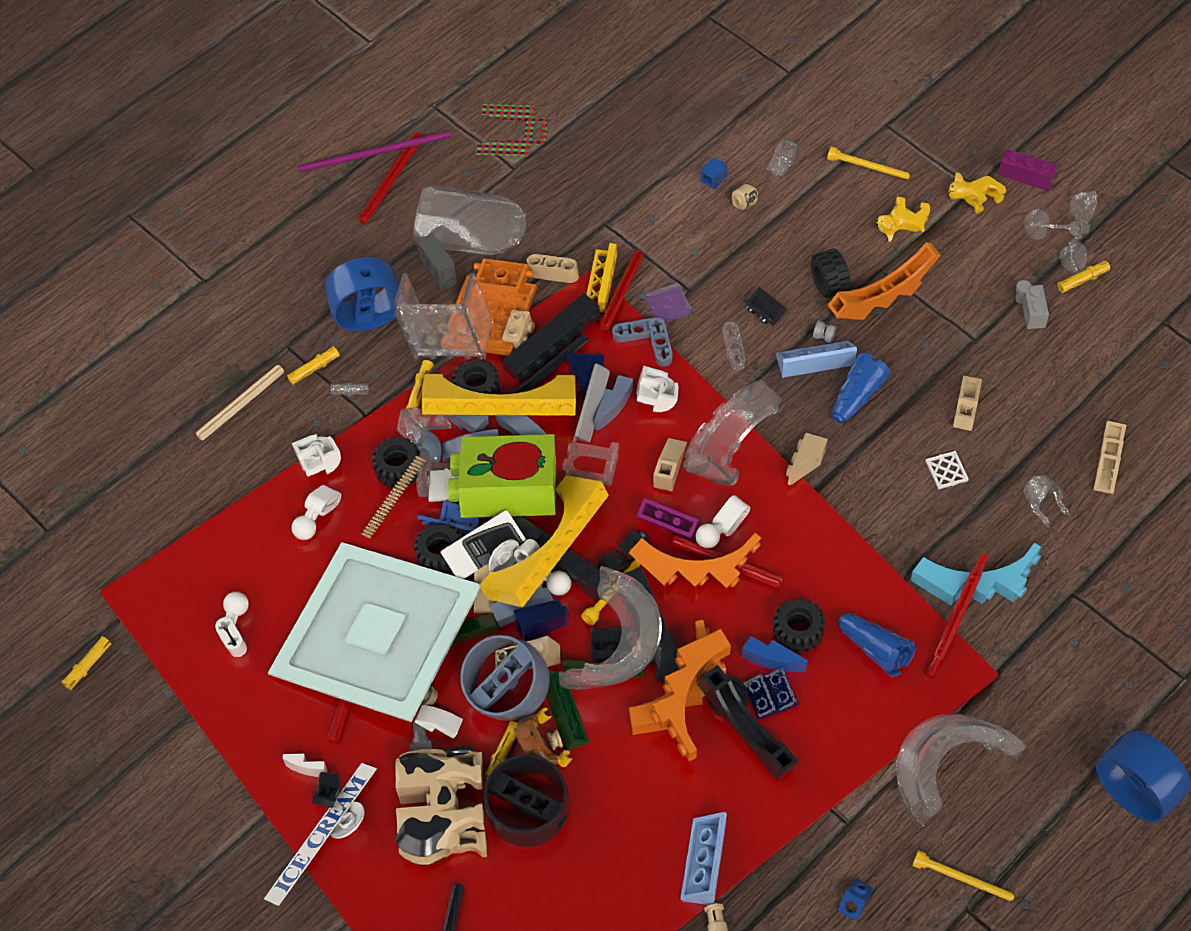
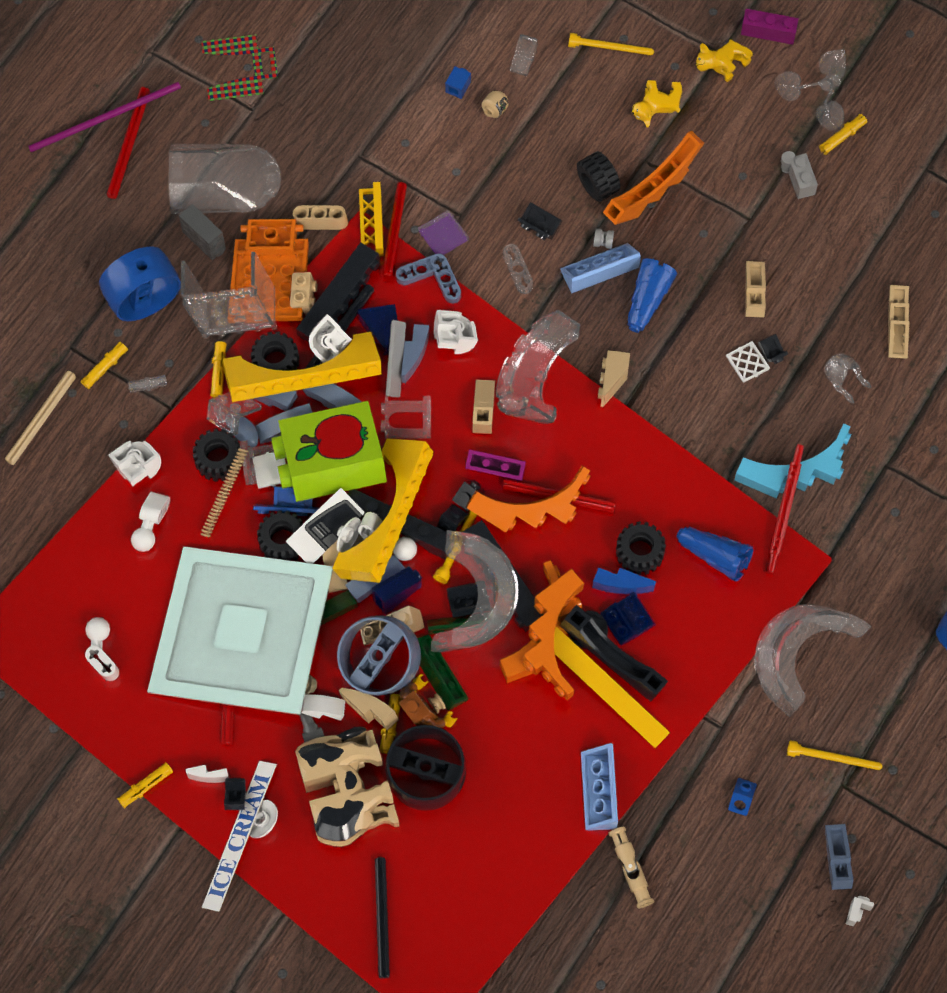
camera: 15 degrees left, 10 degrees up
(217, 773) = (143, 786): none -> yellow pin
(484, 729) = (369, 707): none -> tan slope
(529, 372) = (327, 339): none -> white brick
(724, 522) = (549, 457): white beam -> none
(735, 760) = (608, 689): none -> yellow sticker
(974, 461) = (772, 349): none -> black bracket

